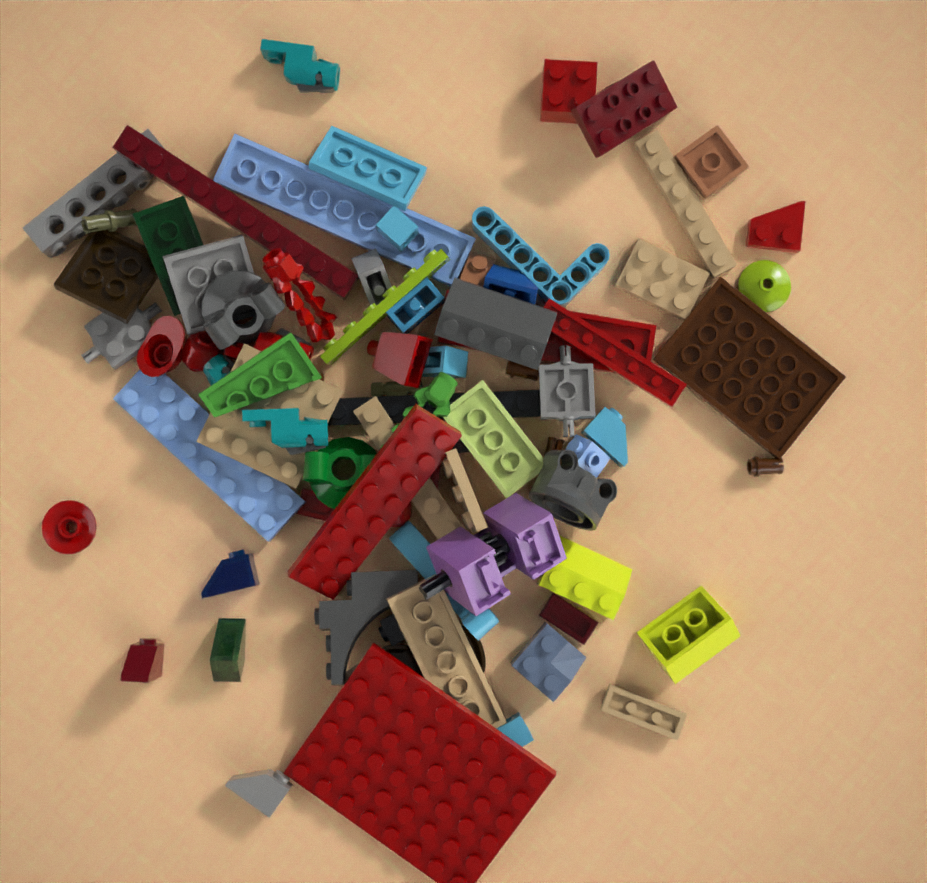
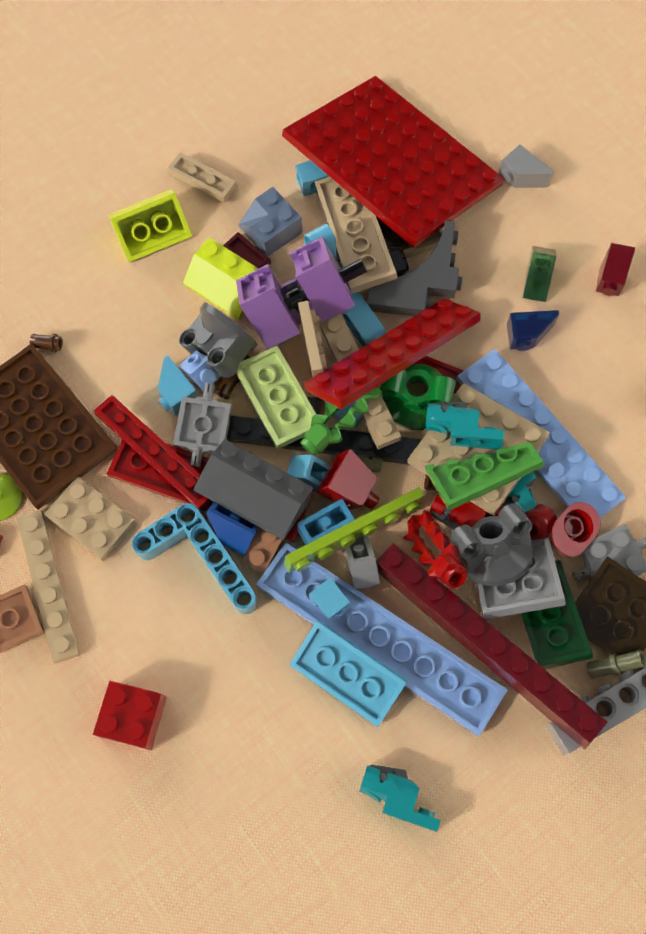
camera: 165 degrees left, 15 degrees down
(624, 109) = (79, 682): dark red plate -> none

